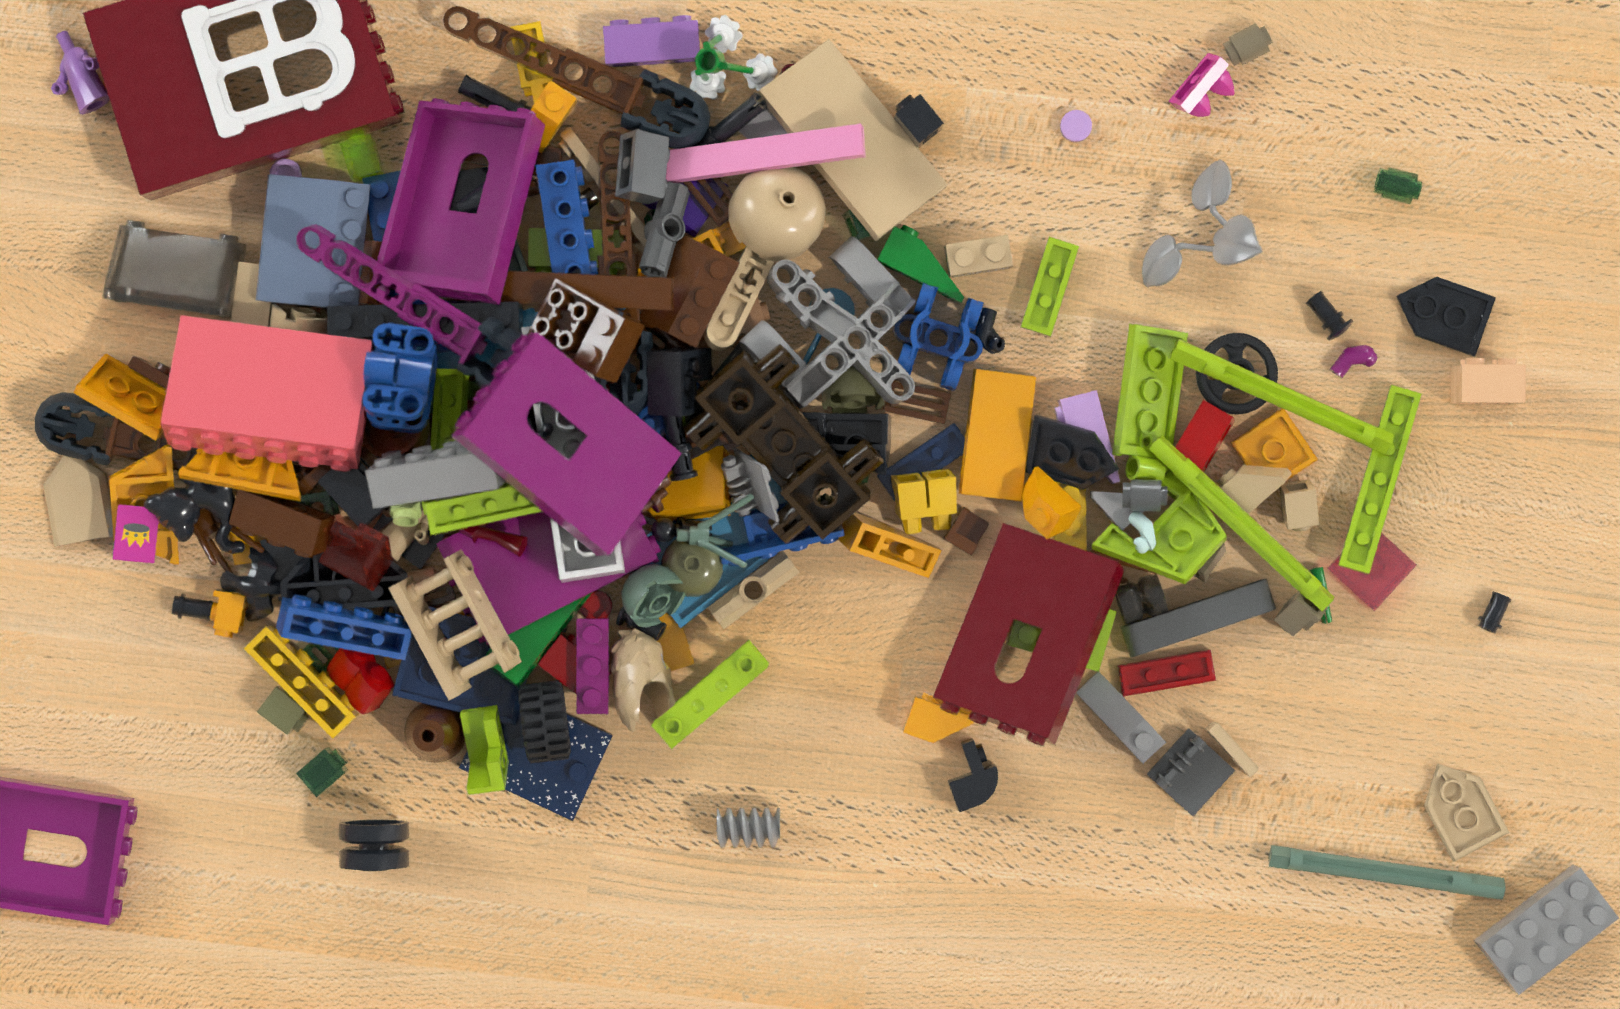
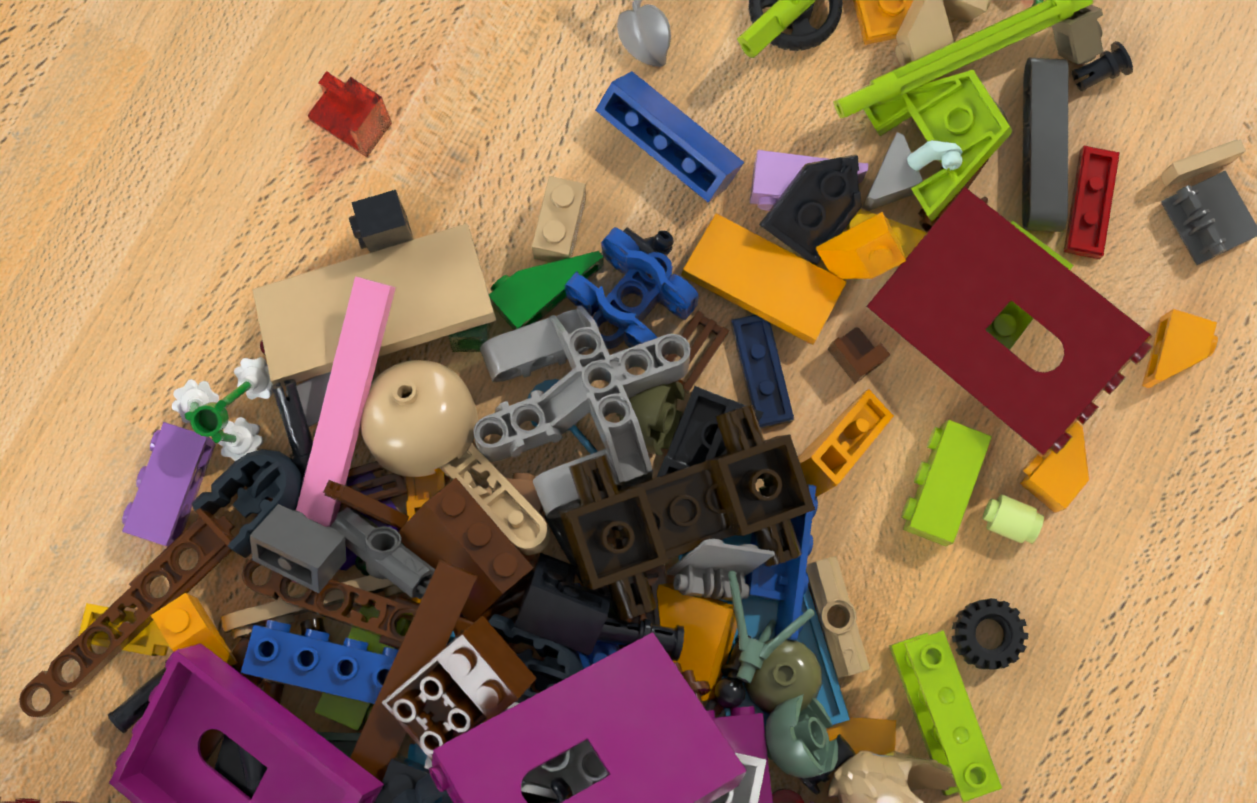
camera: 70 degrees left, 10 degrees down
(694, 202) = (365, 504): none -> reddish brown tile
(748, 827) = (1111, 732): light grey piece -> none
(786, 730) = (1012, 628): none -> black tyre
(882, 697) = (1013, 519): none -> yellowish green brick
(890, 635) = (945, 482): none -> lime brick
(923, 497) = (803, 380): yellow hips -> none
(979, 784) = (1150, 452): black brick -> none
(1000, 52) = (351, 113): none -> clear red panel
(1049, 286) = (623, 161): lime plate -> none
(1070, 780) = (1179, 344): none -> light orange slope
(1075, 126) = (461, 69): lavender tile -> none
(1082, 315) = (669, 136): none -> blue brick
(1121, 717) = (1136, 261): light grey slope -> none
(1141, 598) = (1003, 189): clear smoke wheel -> none
(1144, 495) = (895, 140): dark grey brick -> none
(1147, 399) = (789, 103): lime hinge -> none
(1205, 434) = (847, 58): red hinge -> none
(1283, 642) = (1106, 66): none -> black pin

